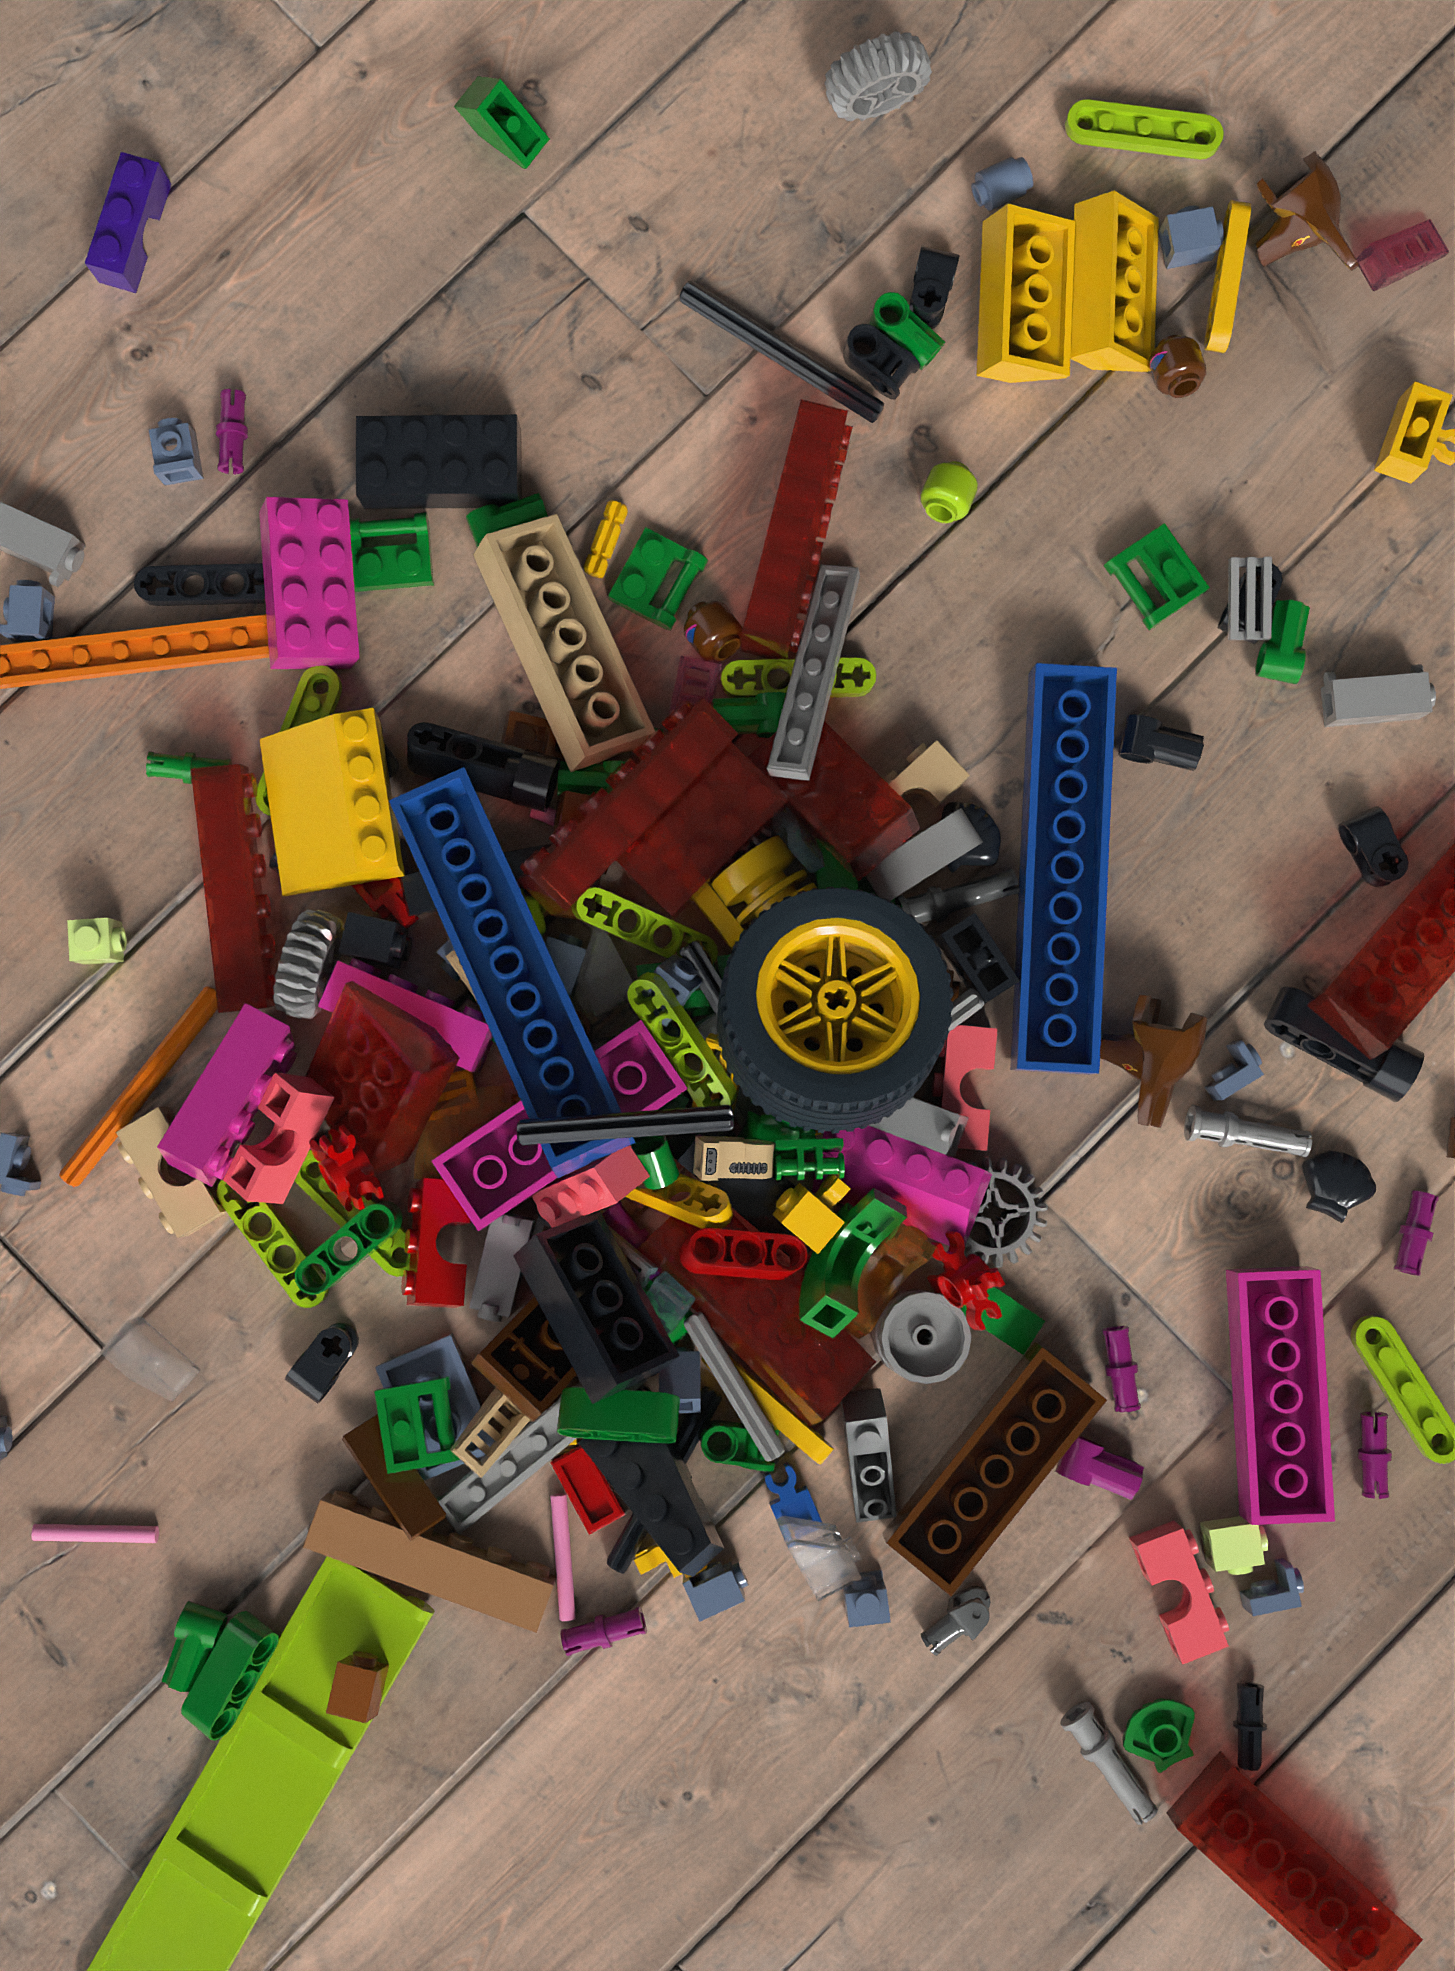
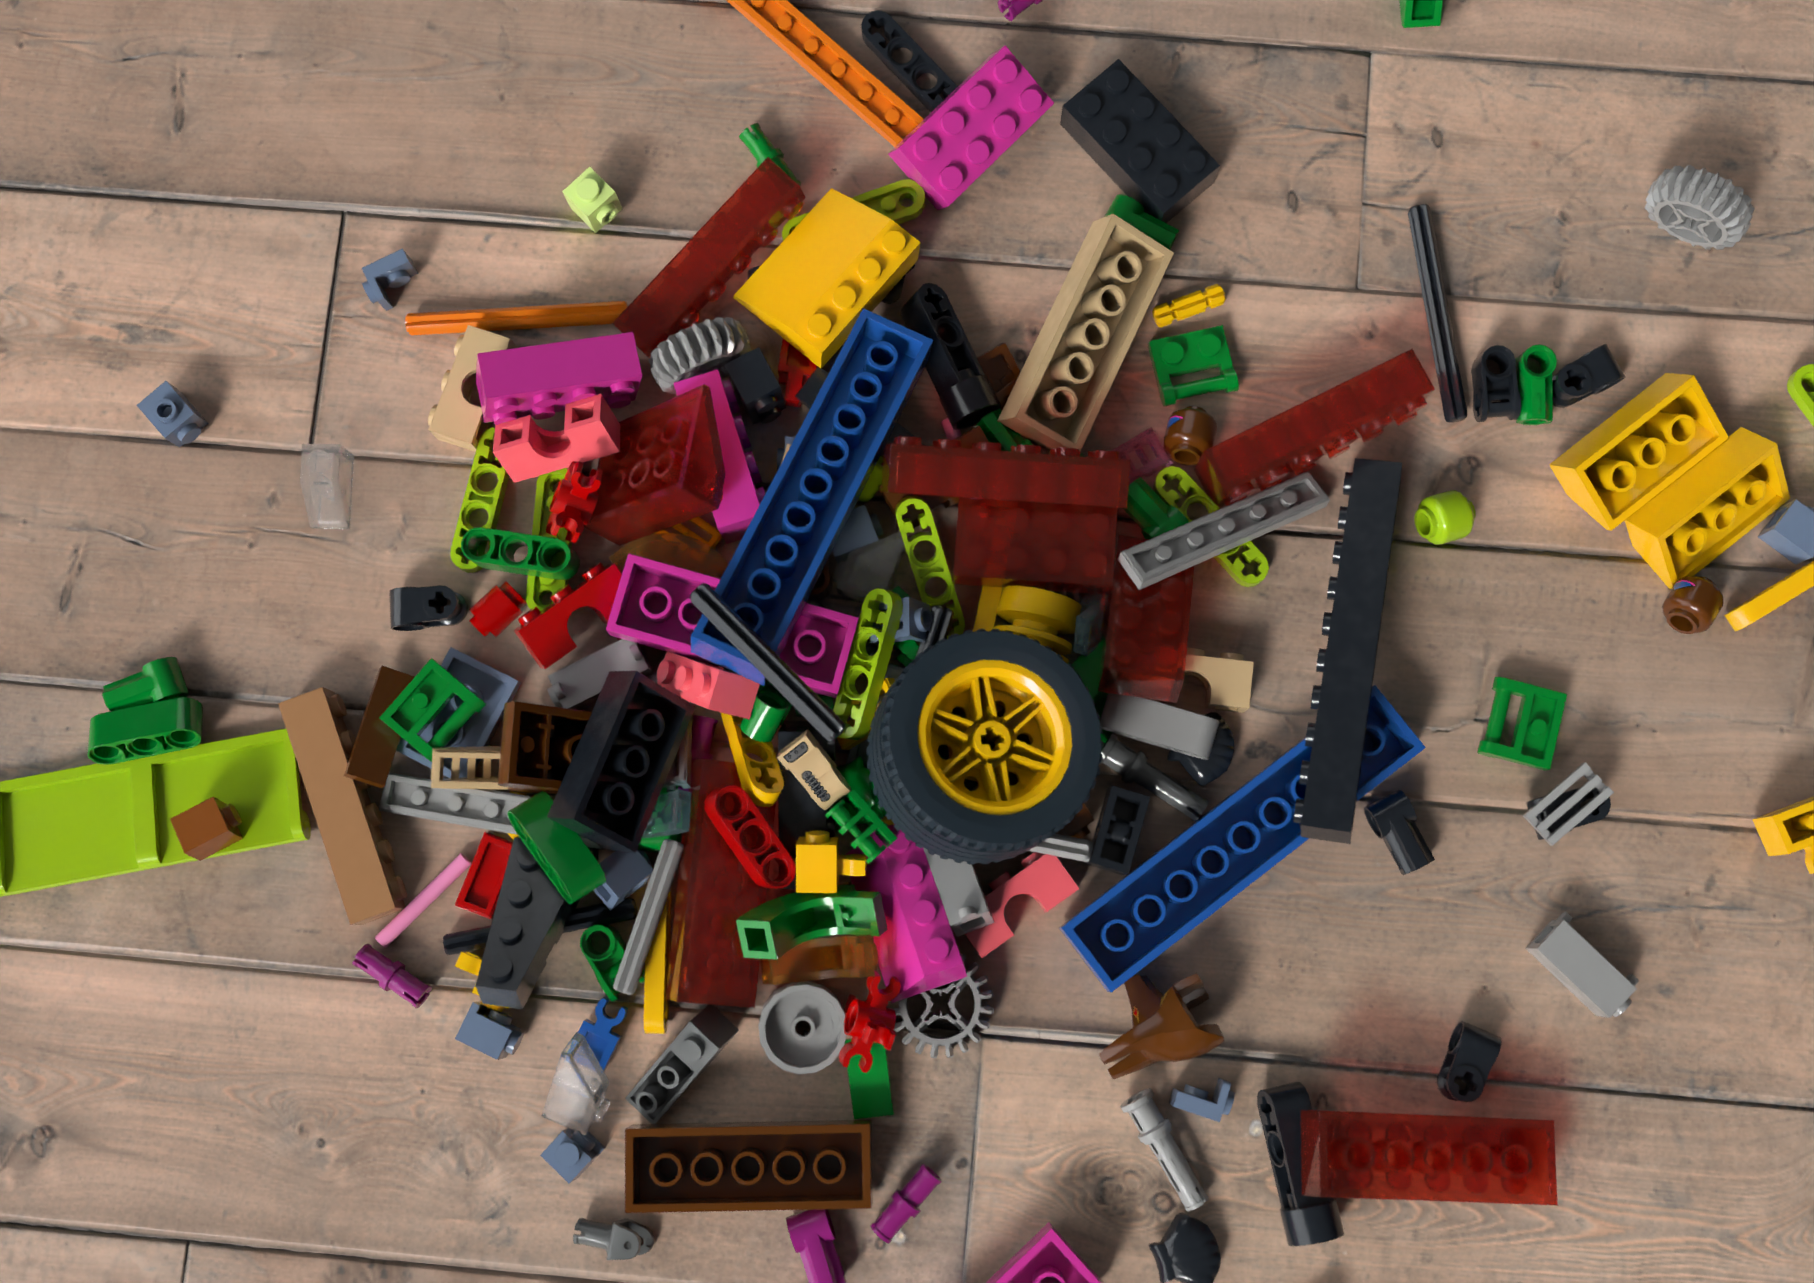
camera: 60 degrees right, 5 degrees down
(95, 1533) = (173, 553): bright pink bar -> none
(376, 1303) = (497, 609): none -> red brick
(395, 564) = (1036, 175): green plate -> none
(994, 656) = (1351, 652): none -> black brick
(1002, 183) = (1707, 362): sand blue brick -> none
(1283, 655) = (1551, 866): green piece -> none

